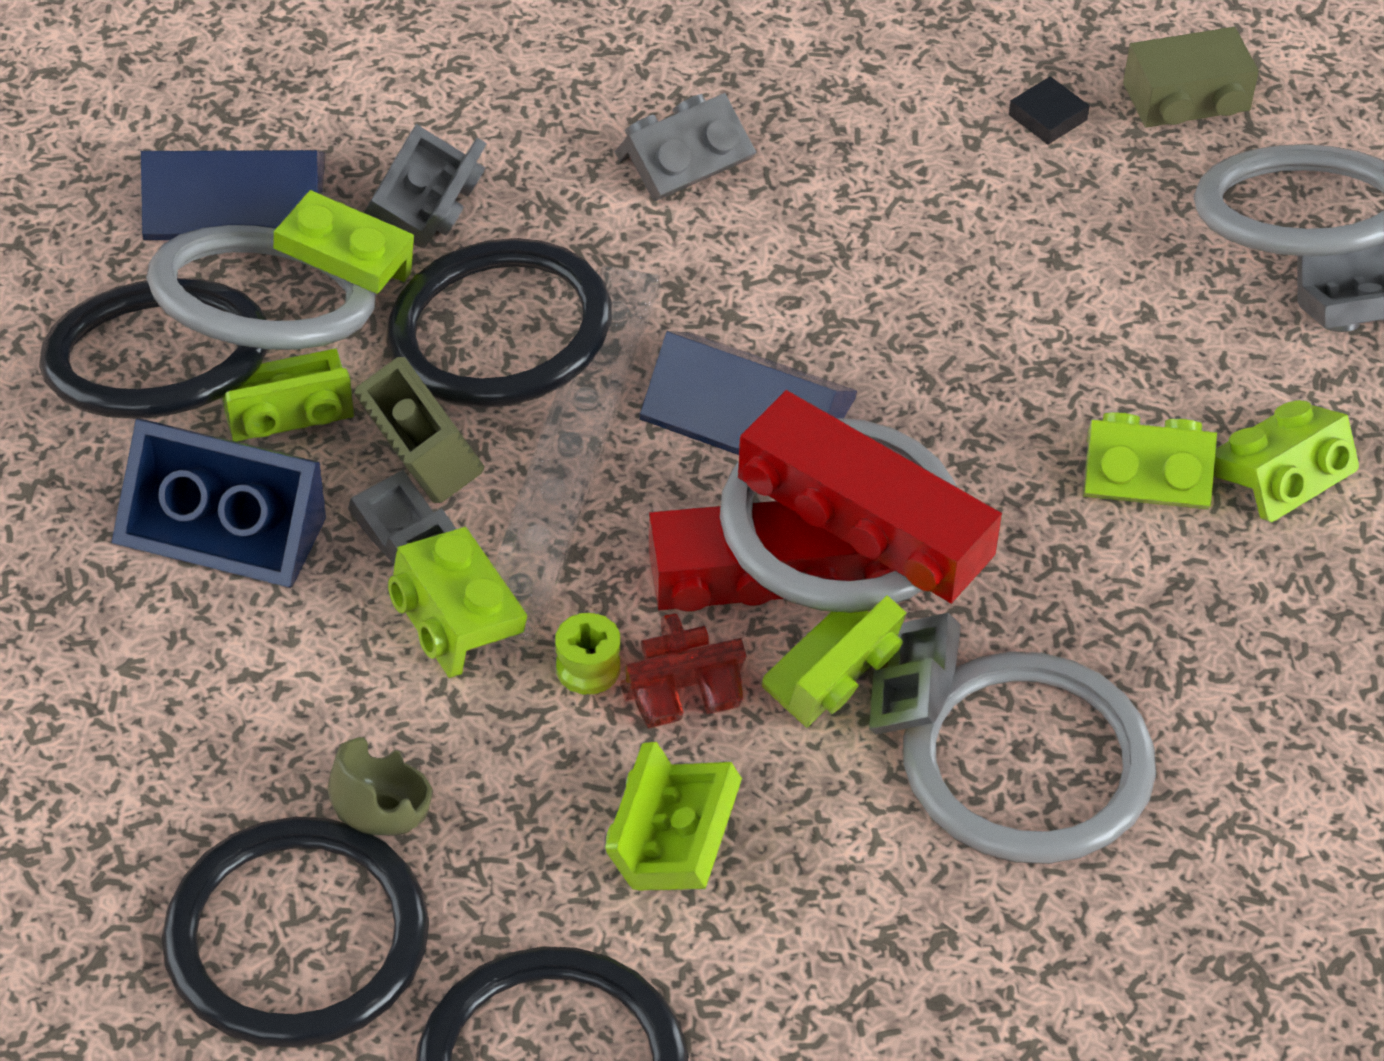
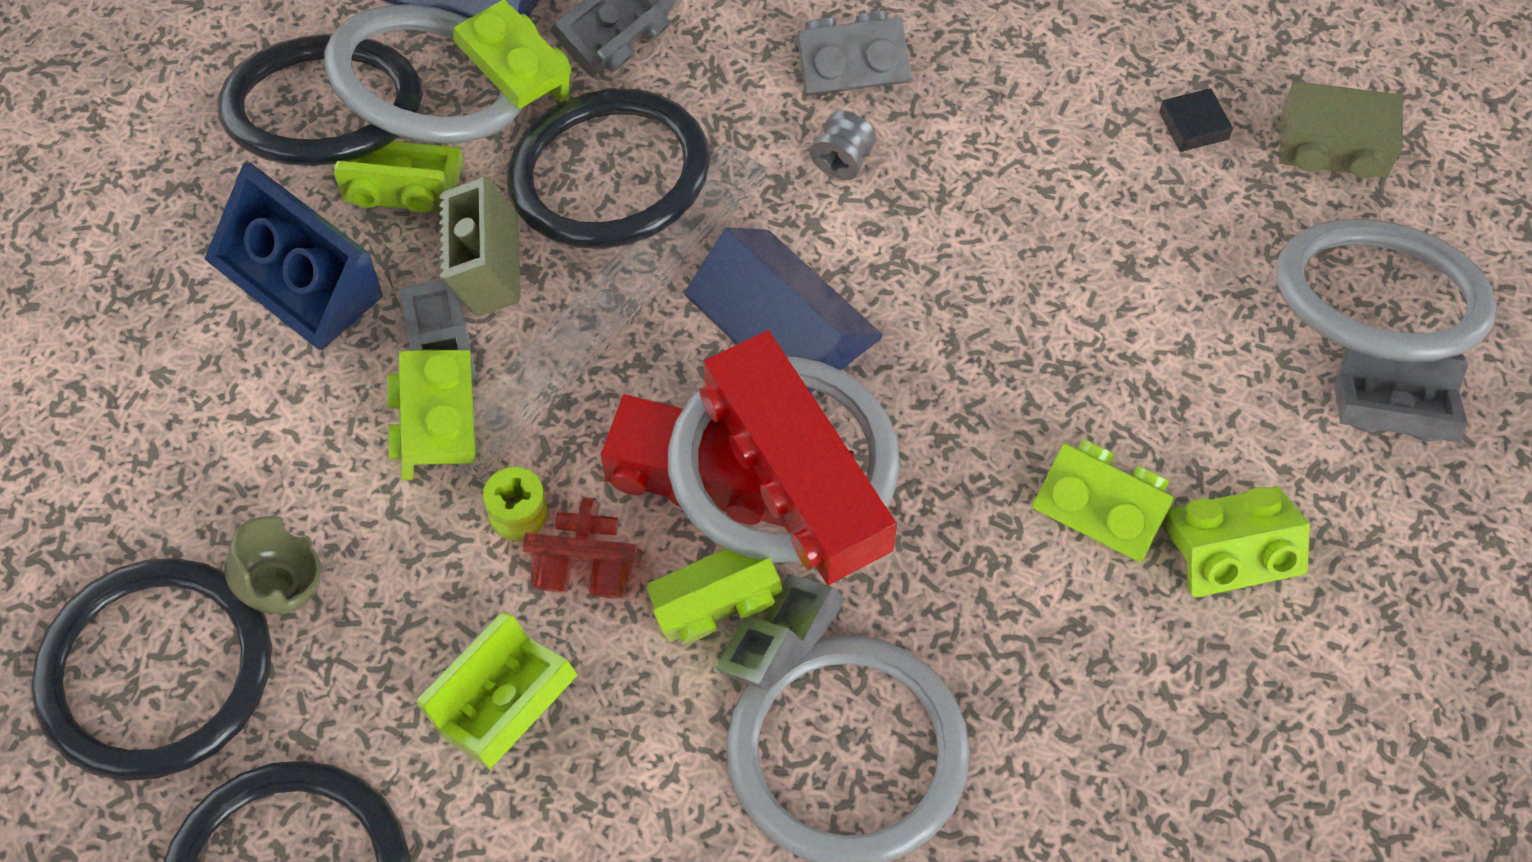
camera: 25 degrees right, 10 degrees up
(726, 230) = (843, 145): none -> flat silver wheel

